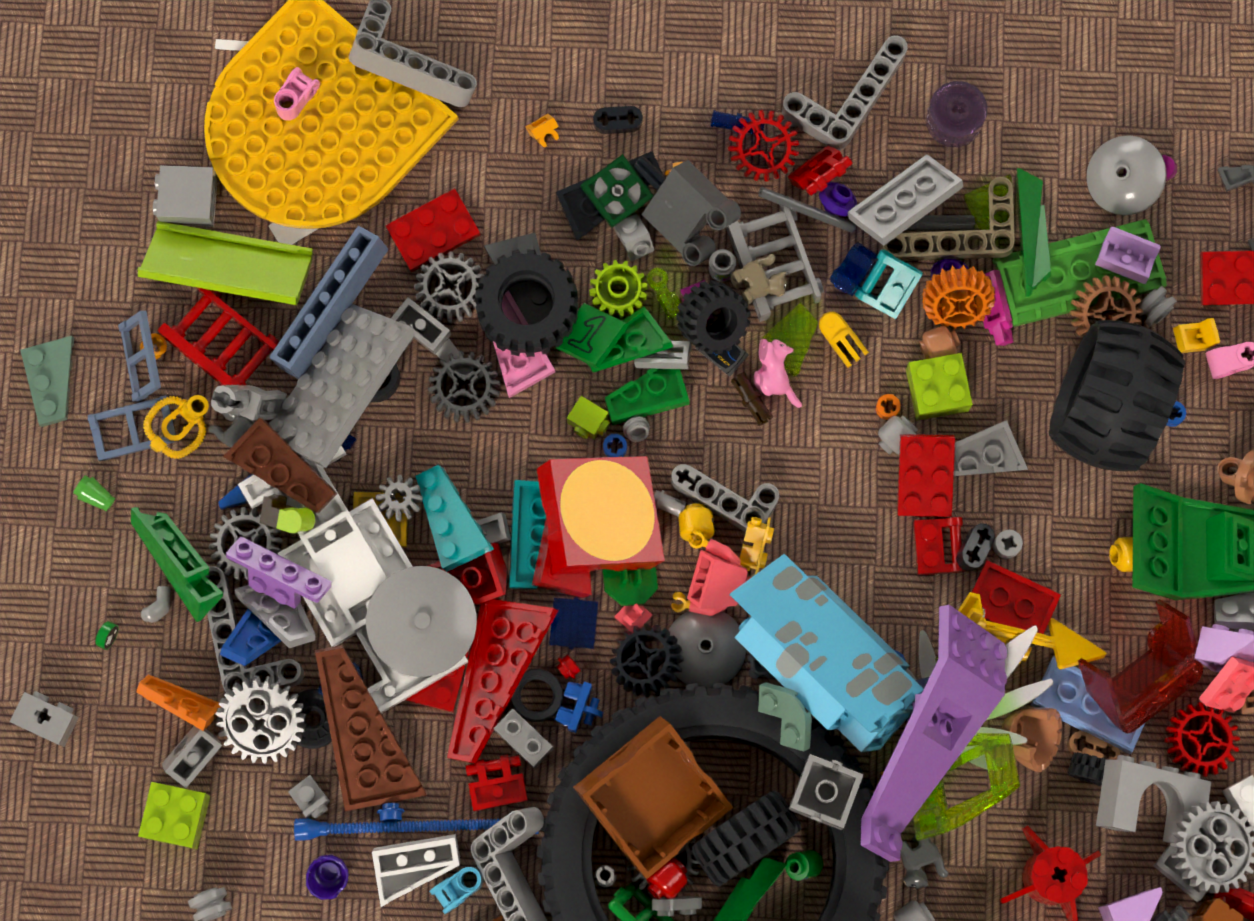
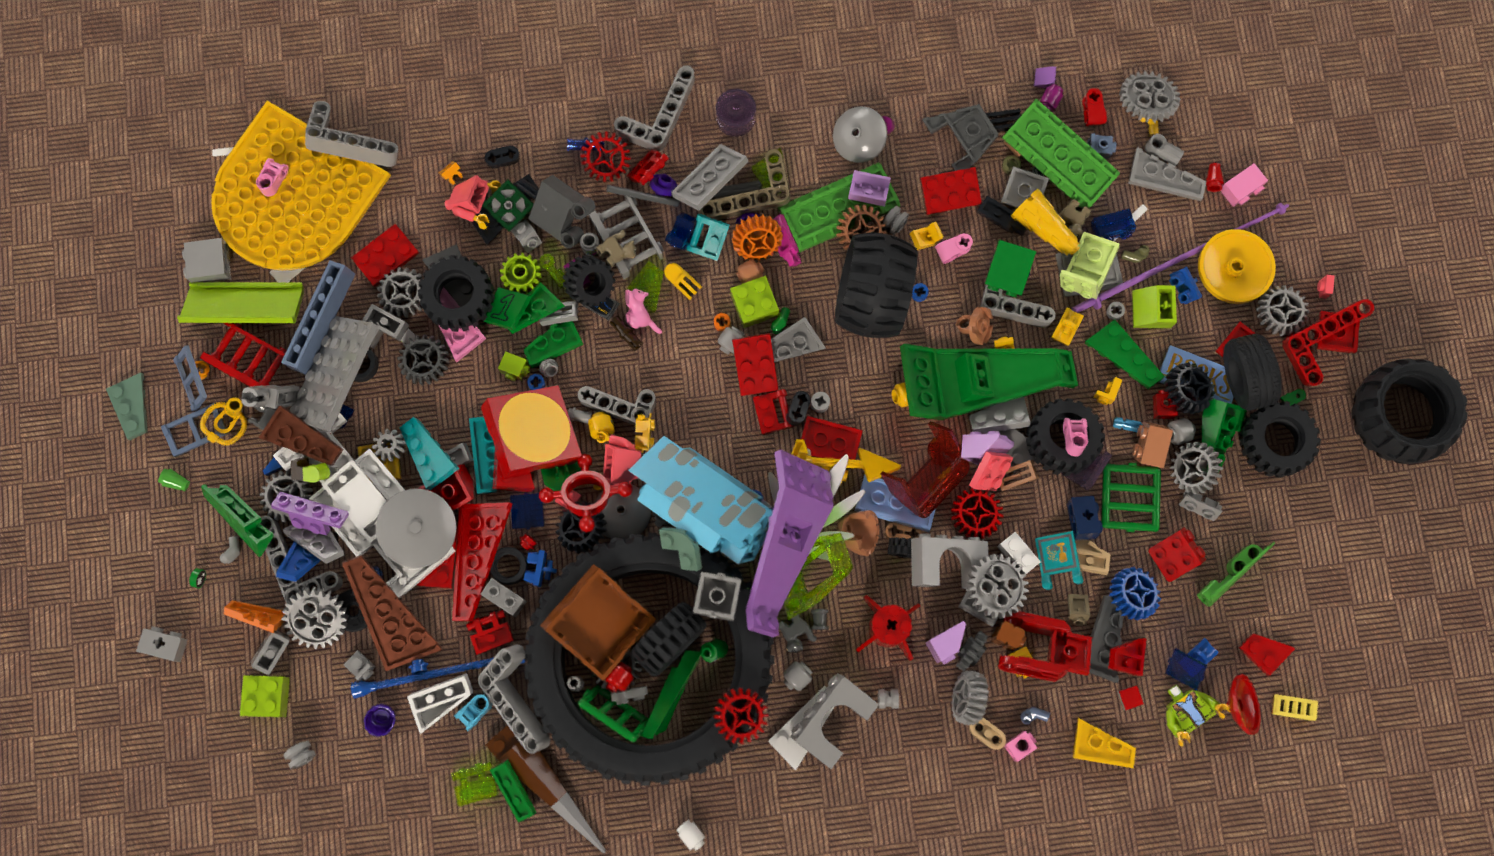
camera: 10 degrees left, 0 degrees up
(564, 171) = (468, 199): none -> coral torso
(663, 590) = (585, 476): none -> red piece
(957, 848) = (819, 619): none -> dark grey bush
(971, 420) = (780, 322): none -> green arm
(1032, 231) = (801, 183): green wedge -> none

